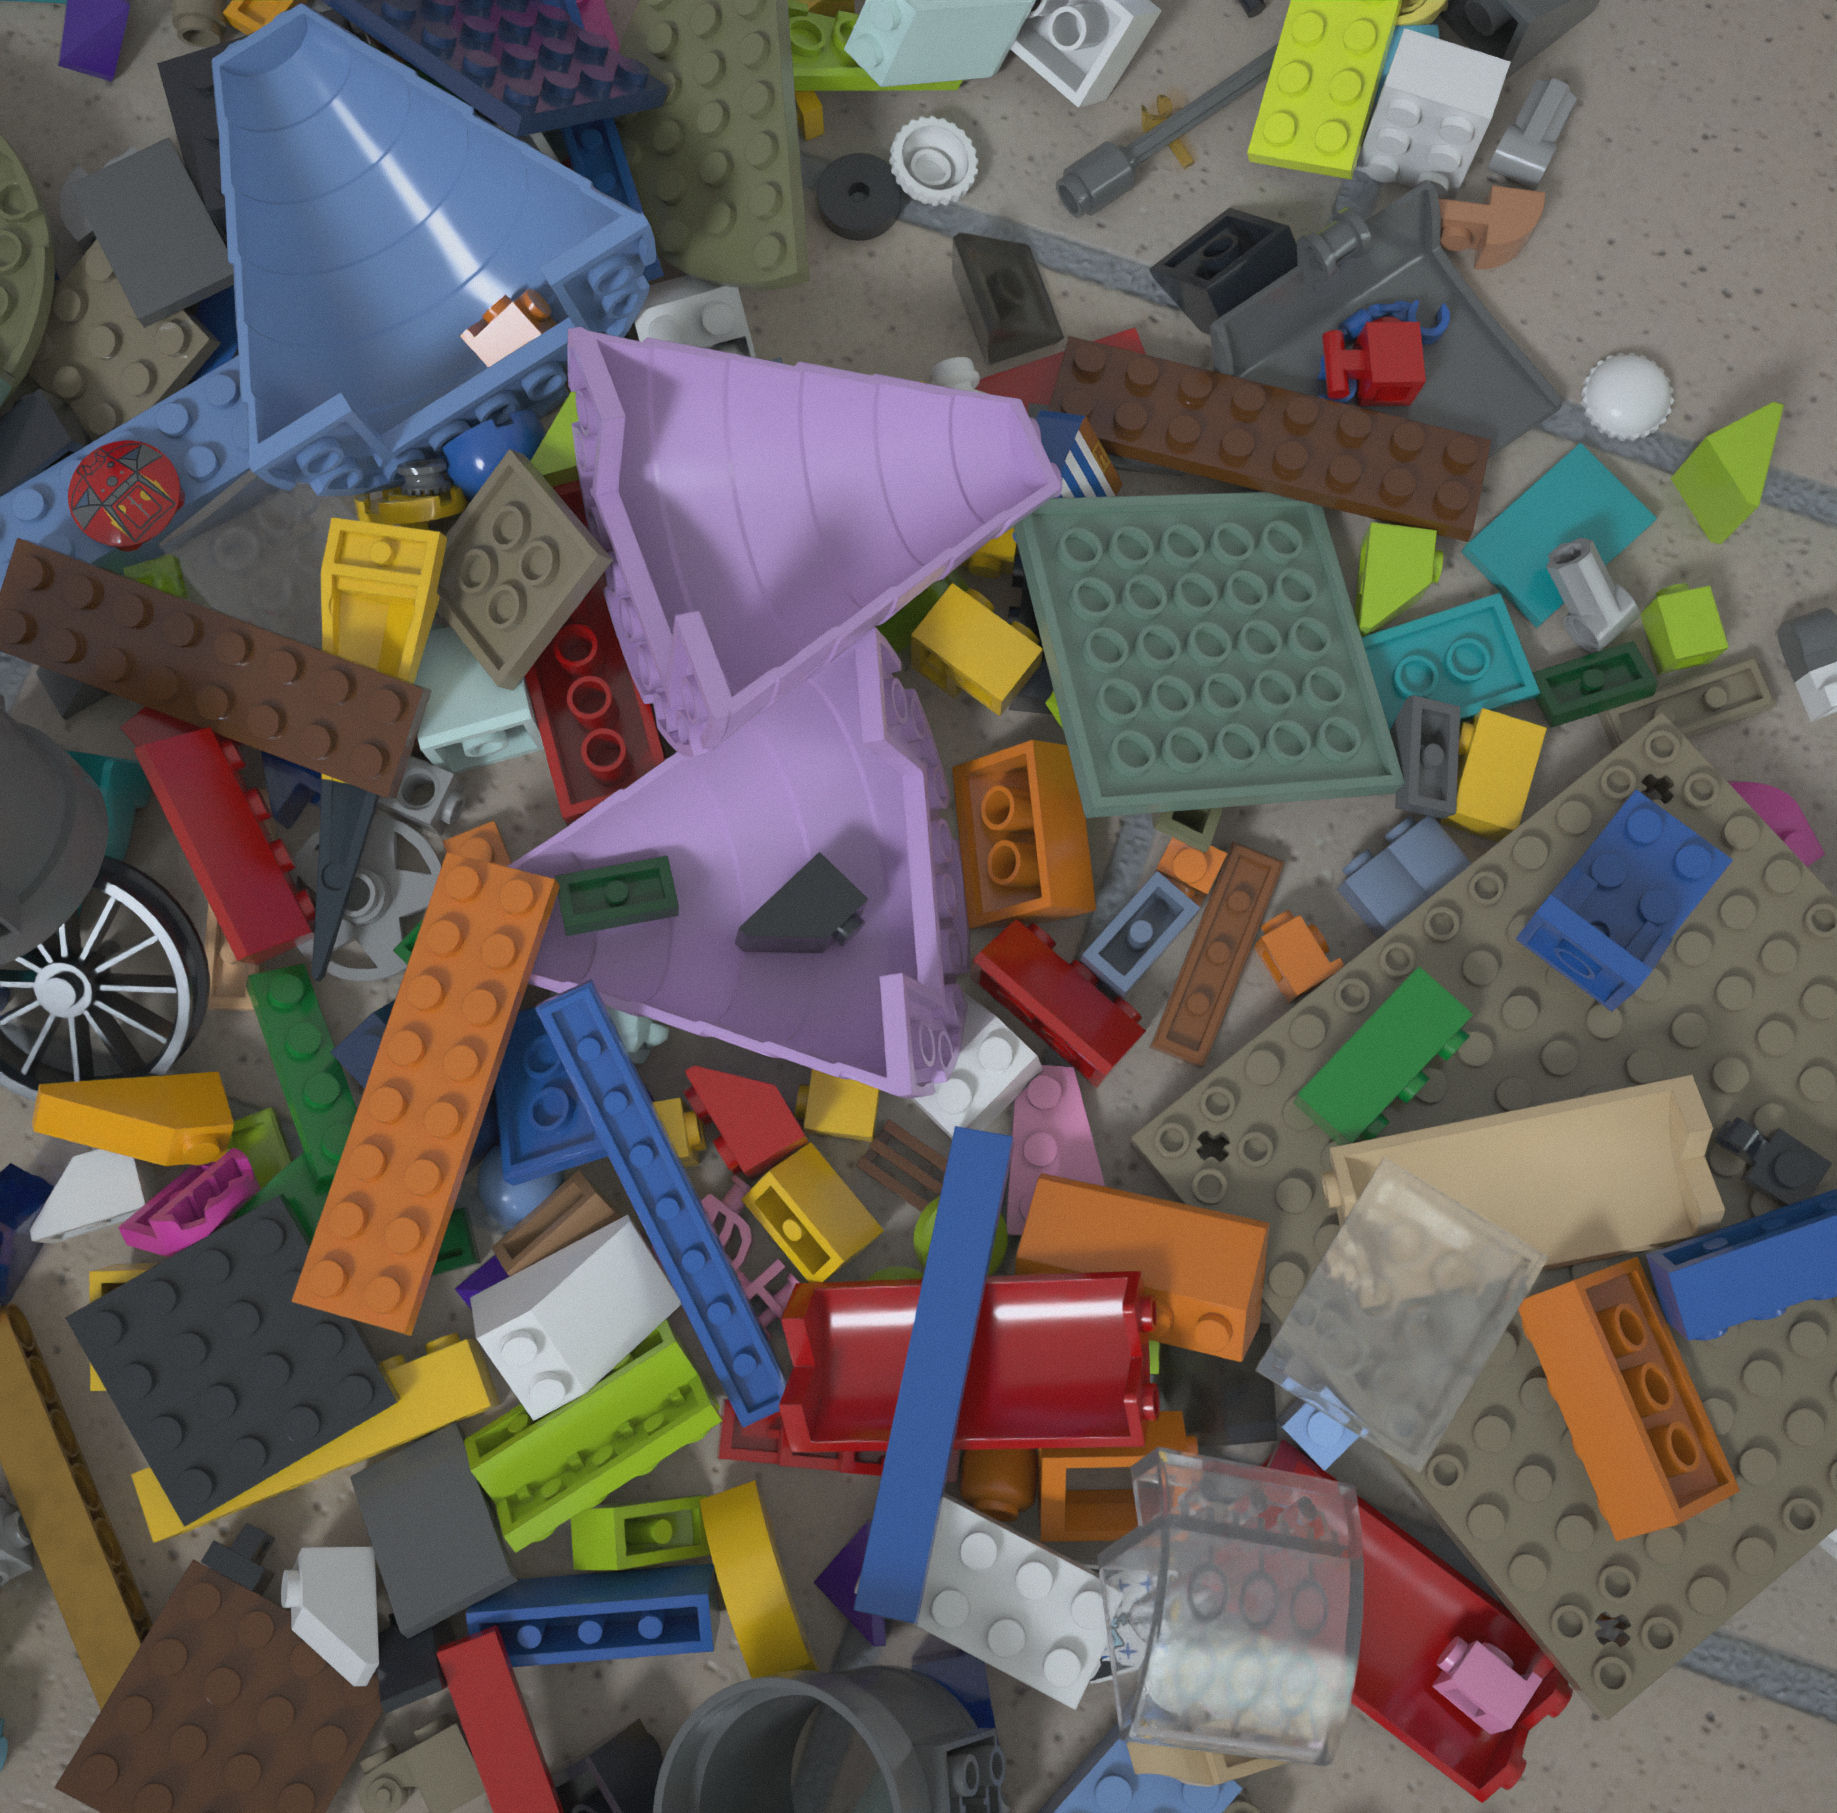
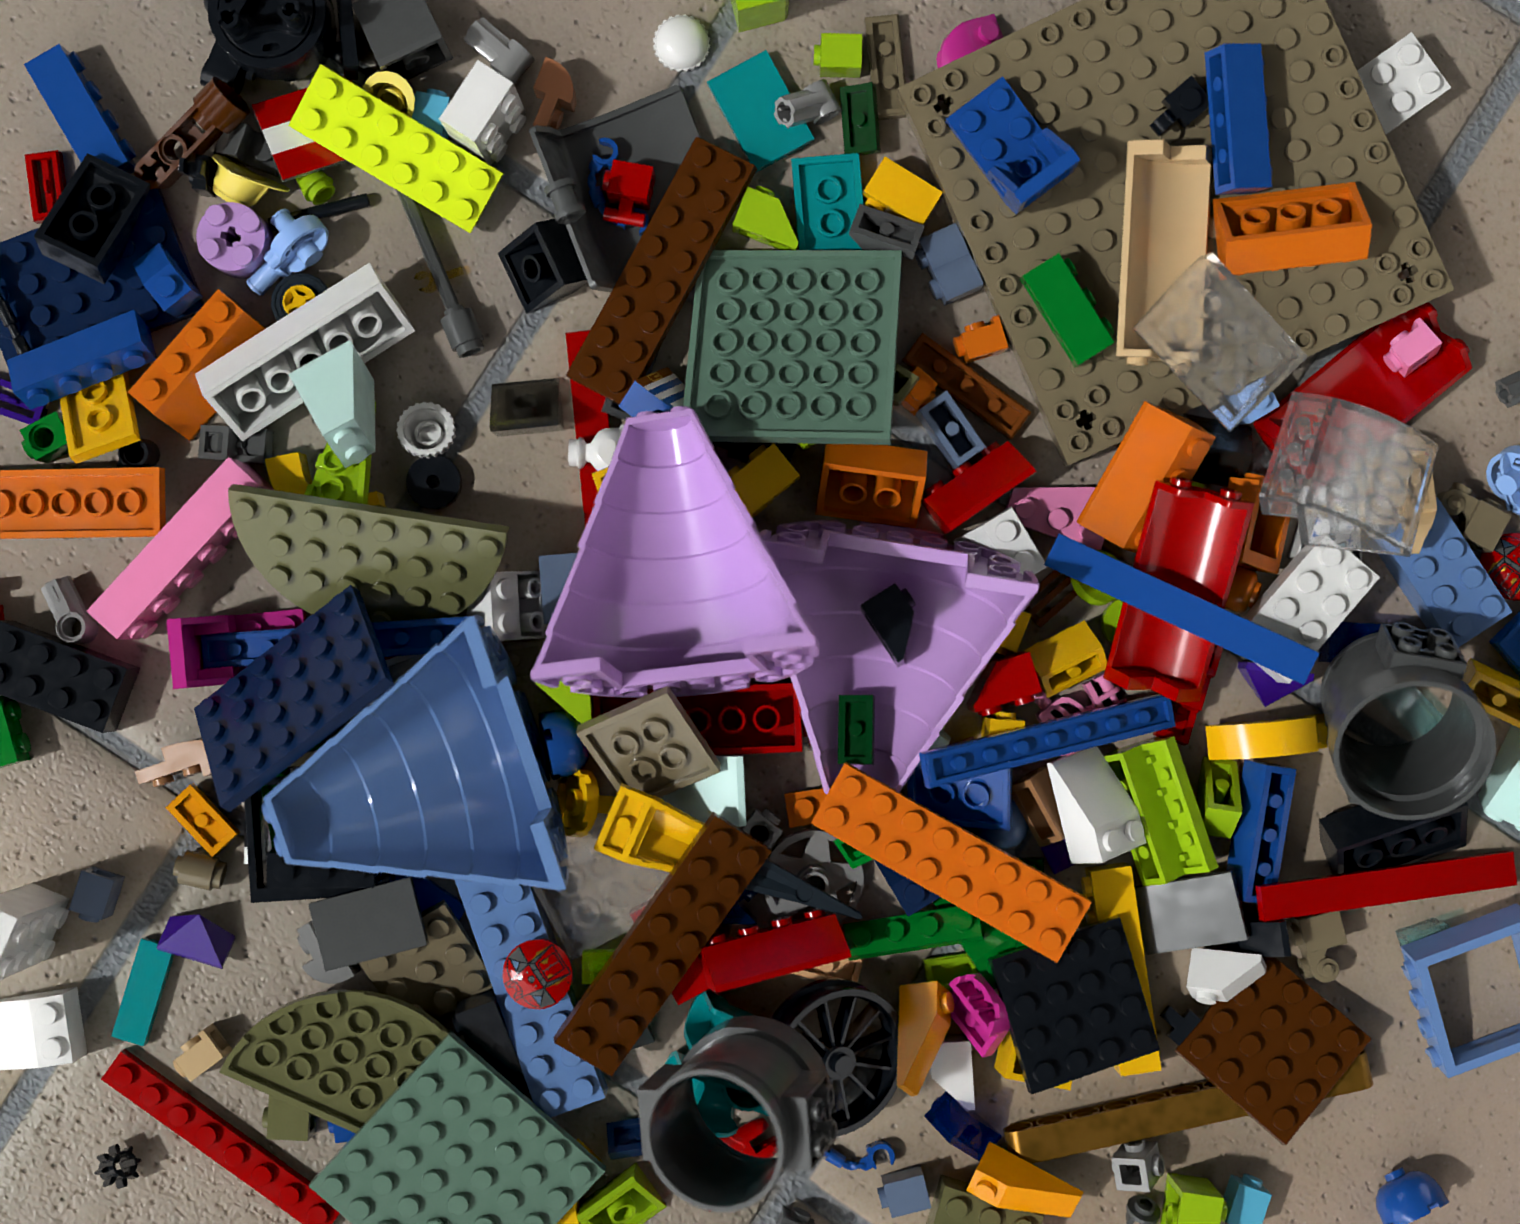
camera: 80 degrees left, 10 degrees up
(423, 475) = (566, 790): dark grey bush -> none
(509, 326) = (486, 718): brick -> none

